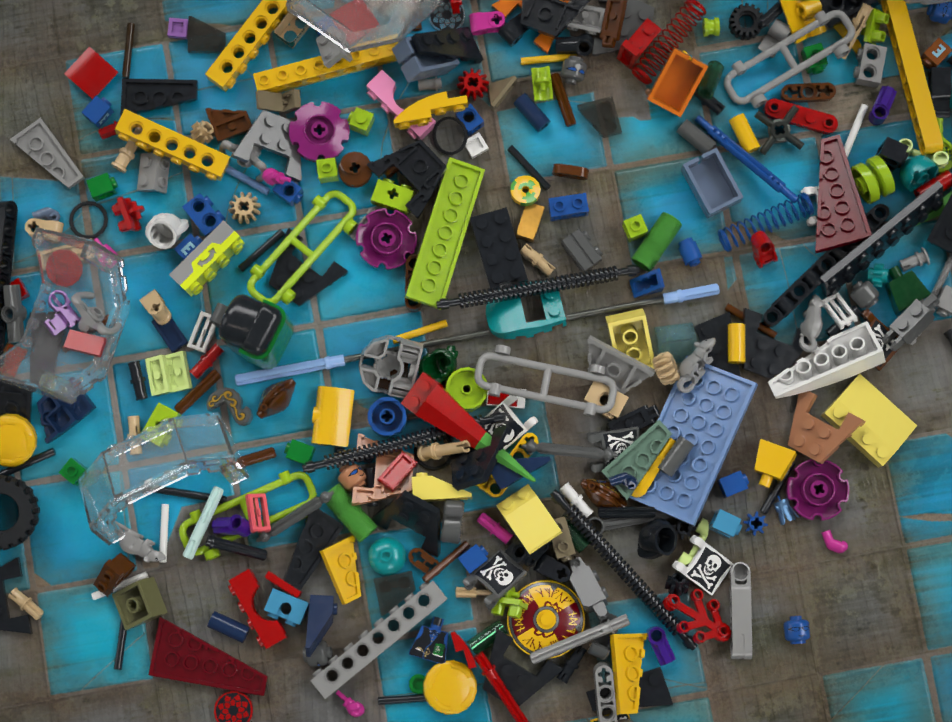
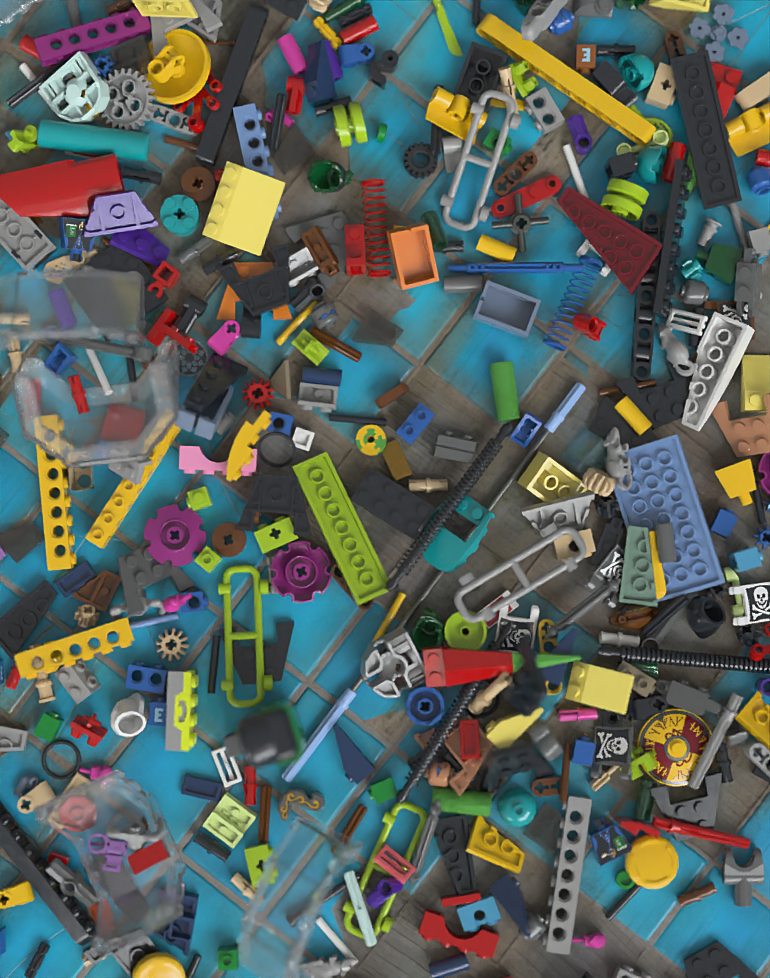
camera: 40 degrees left, 5 degrees up
(156, 307) = (175, 780): tan piece -> none
(219, 99) = (75, 578): none -> dark blue tile
(234, 547) = (401, 904): black axle -> none
(276, 398) = (327, 765): reddish brown hat -> none
(278, 102) = (123, 540): dark tan bracket -> none
(298, 410) = (354, 761): none -> dark blue slope
(332, 416) = (383, 741): yellow panel -> none
(515, 124) = (317, 396): none -> light grey bracket
(625, 479) = (643, 592): dark blue arm -> none
(635, 228) = (479, 395): lime brick -> none
(656, 393) = (607, 506): none -> black gear
(690, 252) = (536, 376): blue brick -> none
(711, 27) = (398, 188): lime wheel -> none

